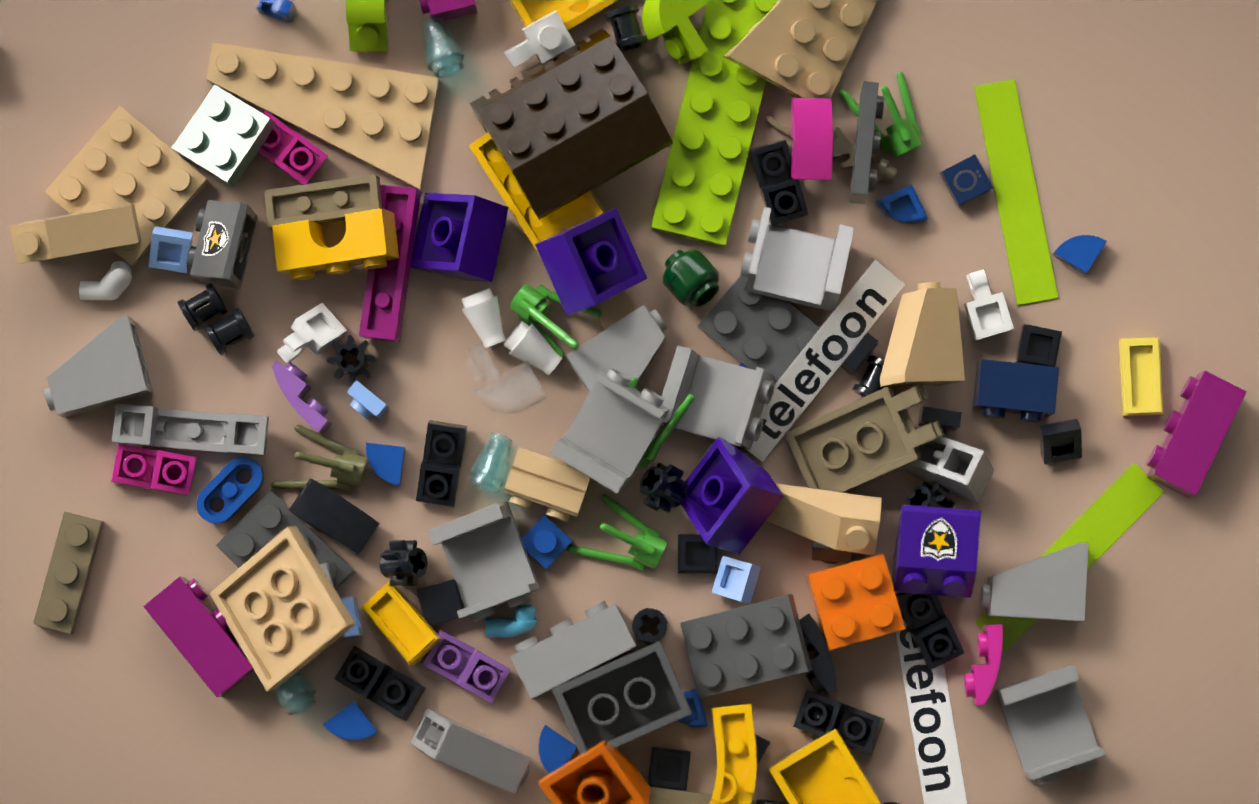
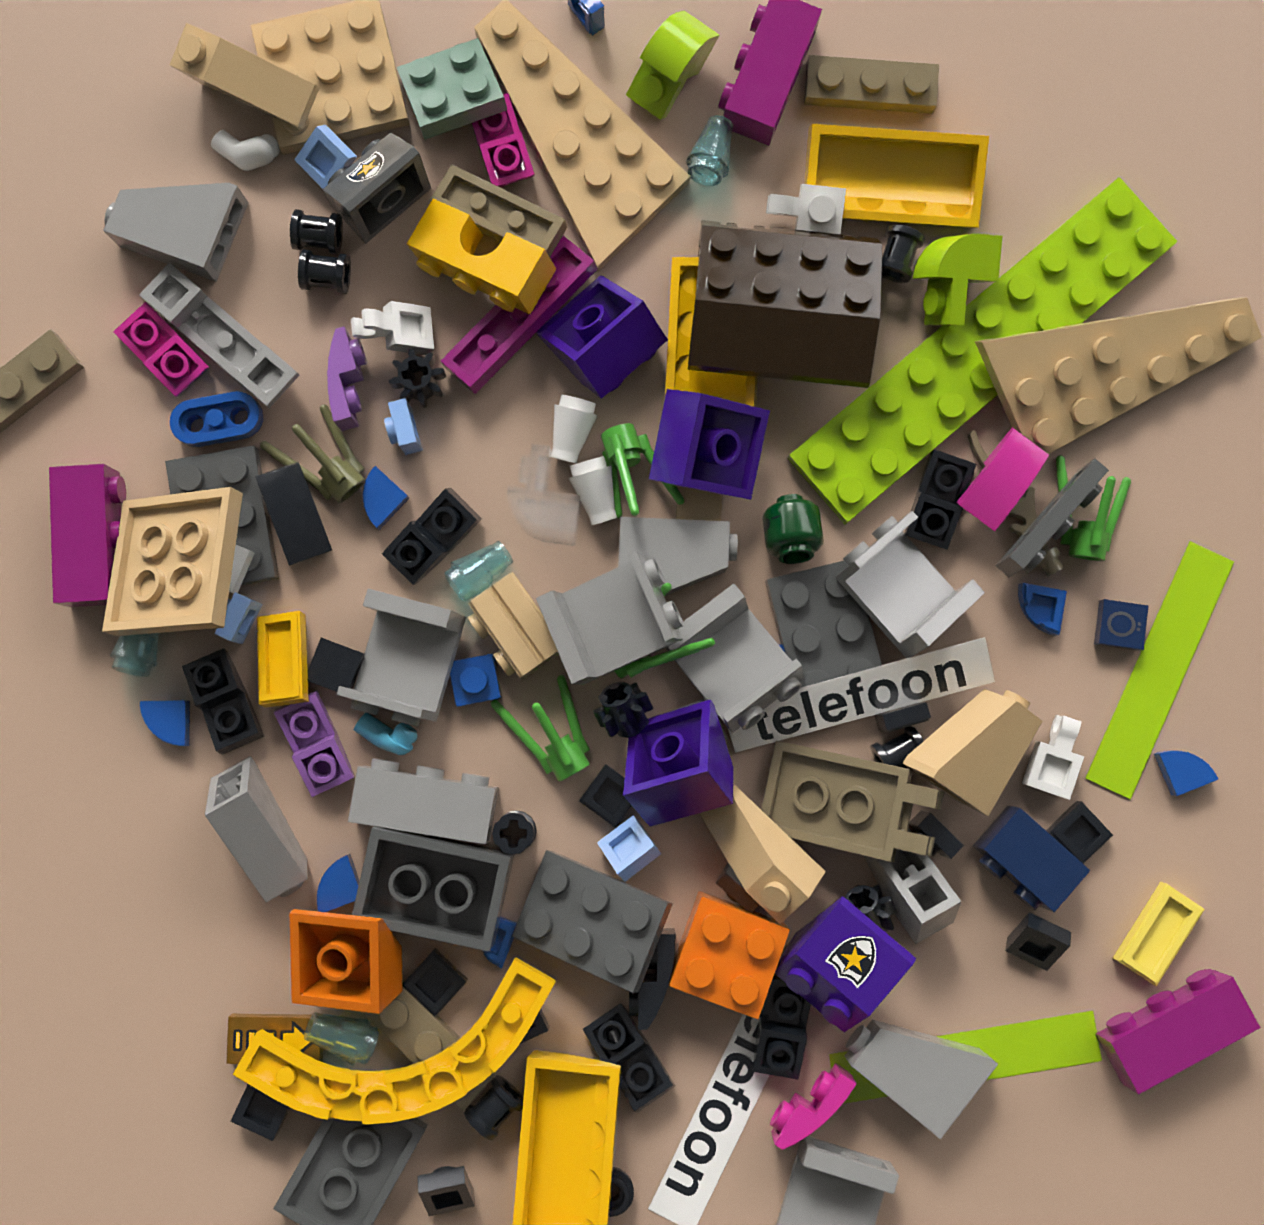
camera: 30 degrees right, 0 degrees up
(403, 563) = (325, 603): black gear -> none

